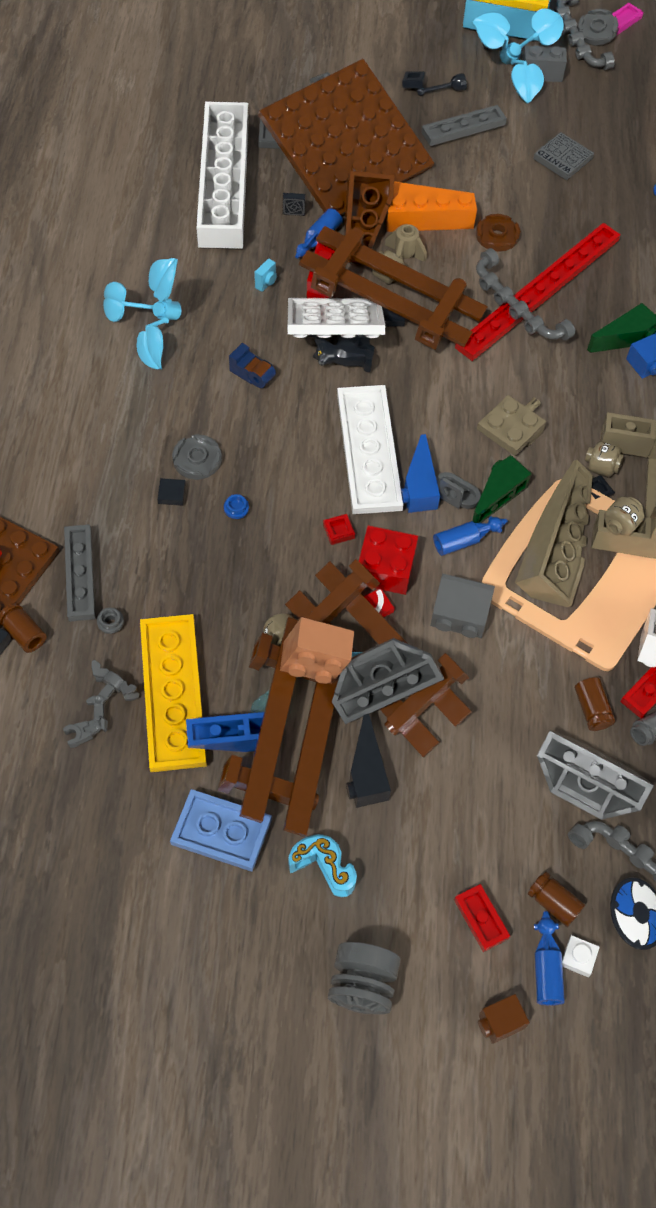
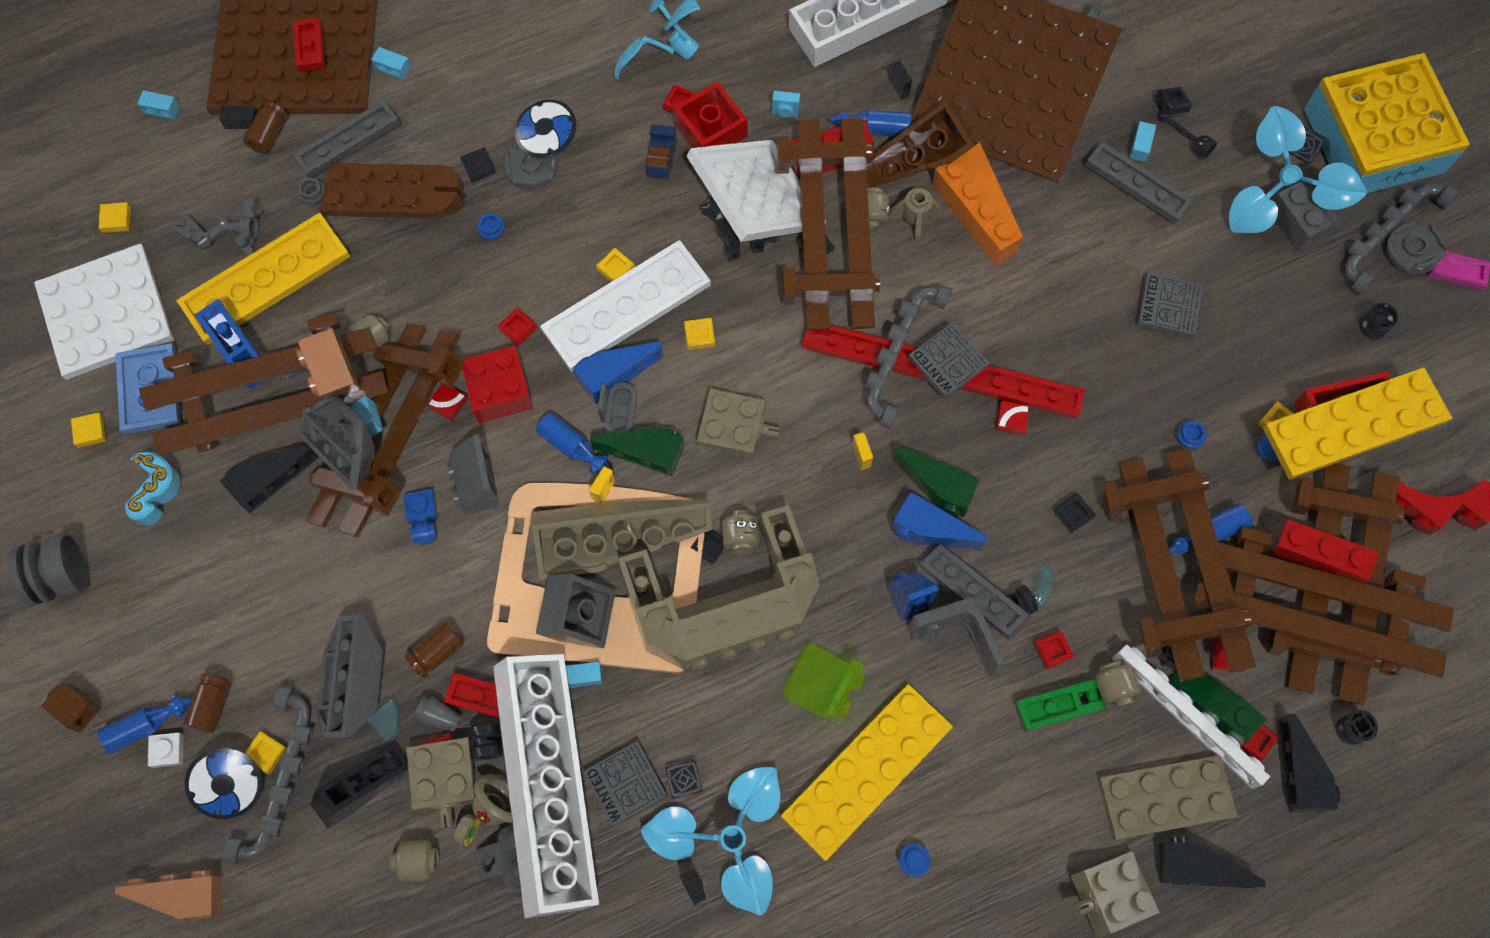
camera: 65 degrees right, 10 degrees up
(20, 791) = (114, 217): none -> yellow tile
(28, 509) = (391, 63): none -> medium azure piece
(112, 841) = (103, 310): none -> white plate
(155, 559) = (391, 191): none -> reddish brown plate
(177, 427) = (545, 128): none -> shield
(211, 338) = (676, 95): none -> red tile
(229, 901) = (88, 430): none -> yellow tile
(251, 321) = (710, 118): none -> red brick
(328, 442) = (614, 265): none -> yellow tile
(420, 416) = (699, 333): none -> yellow tile
(433, 109) = (1142, 141): none -> medium azure piece
(481, 918) = (161, 645): red plate -> none
(484, 670) = (421, 509): none -> blue plate
(498, 242) = (999, 305): reddish brown tile -> none
(518, 526) = (602, 485): none -> yellow tile
(540, 279) = (948, 360): none -> dark grey tile
(578, 361) = (862, 451): none -> yellow tile
(598, 272) = (1012, 417): none -> red tile
(613, 591) = (575, 611): none -> dark grey slope
(617, 871) = (266, 752): none -> yellow tile
(624, 516) = (636, 573): dark tan head -> none
(638, 69) = (1379, 321): none -> black wheel
(638, 764) = (386, 721): none -> clear light blue tile

